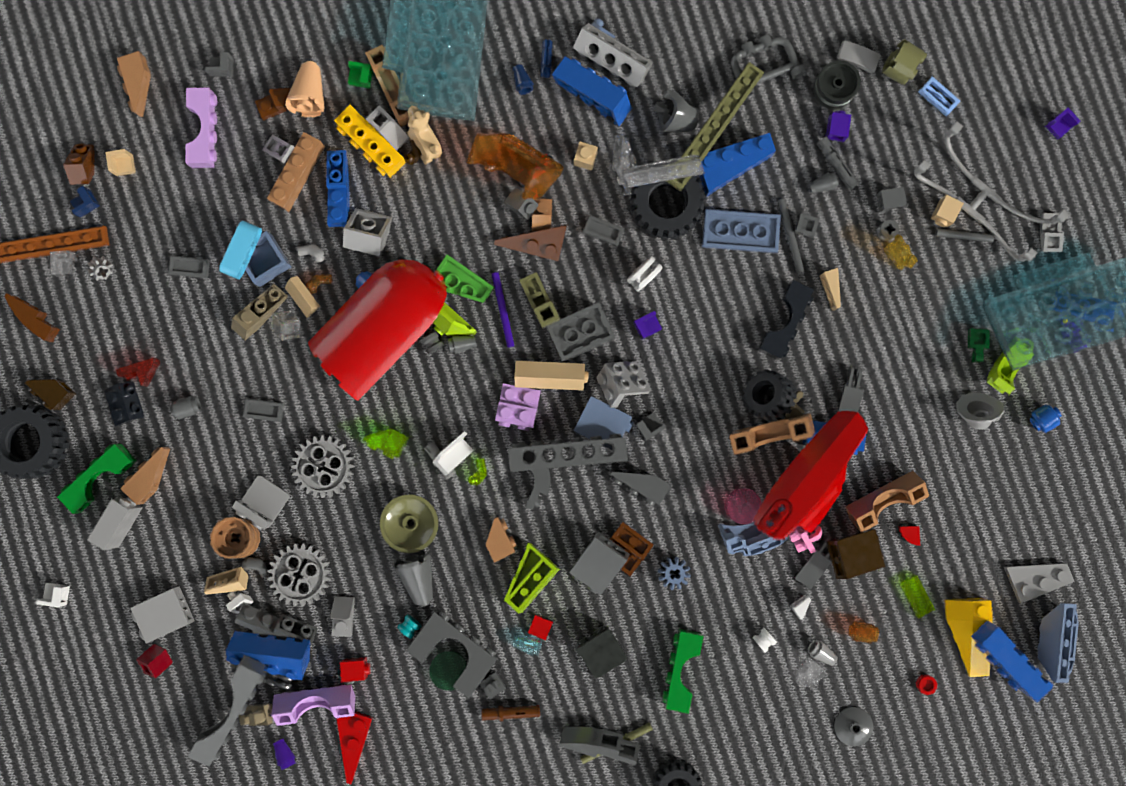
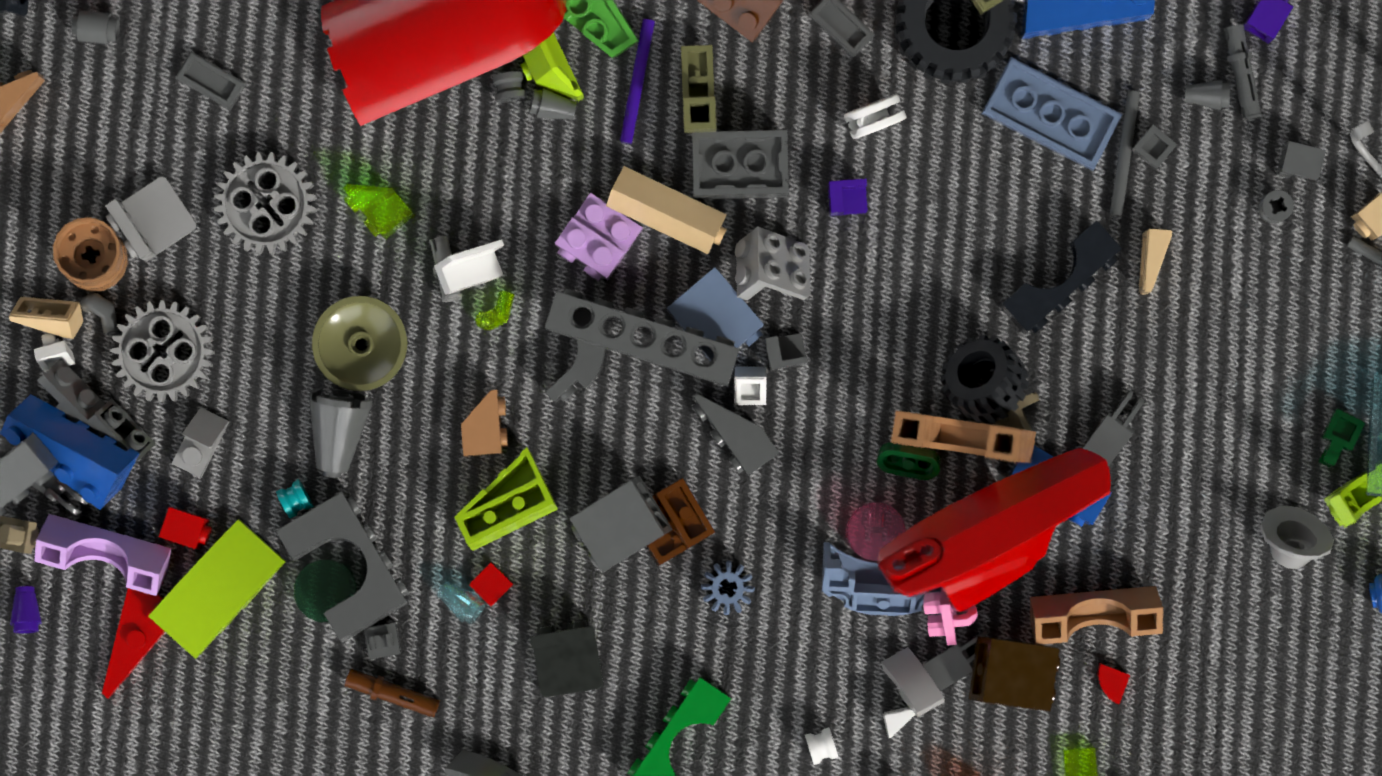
camera: 20 degrees right, 0 degrees up
(386, 696) = (217, 588): none -> lime slope
(638, 453) = (750, 385): none -> white slope
(745, 459) = (908, 461): none -> dark green plate
(801, 582) = (913, 681): none -> light grey slope
(900, 253) = (1278, 249): clear yellow hips -> none

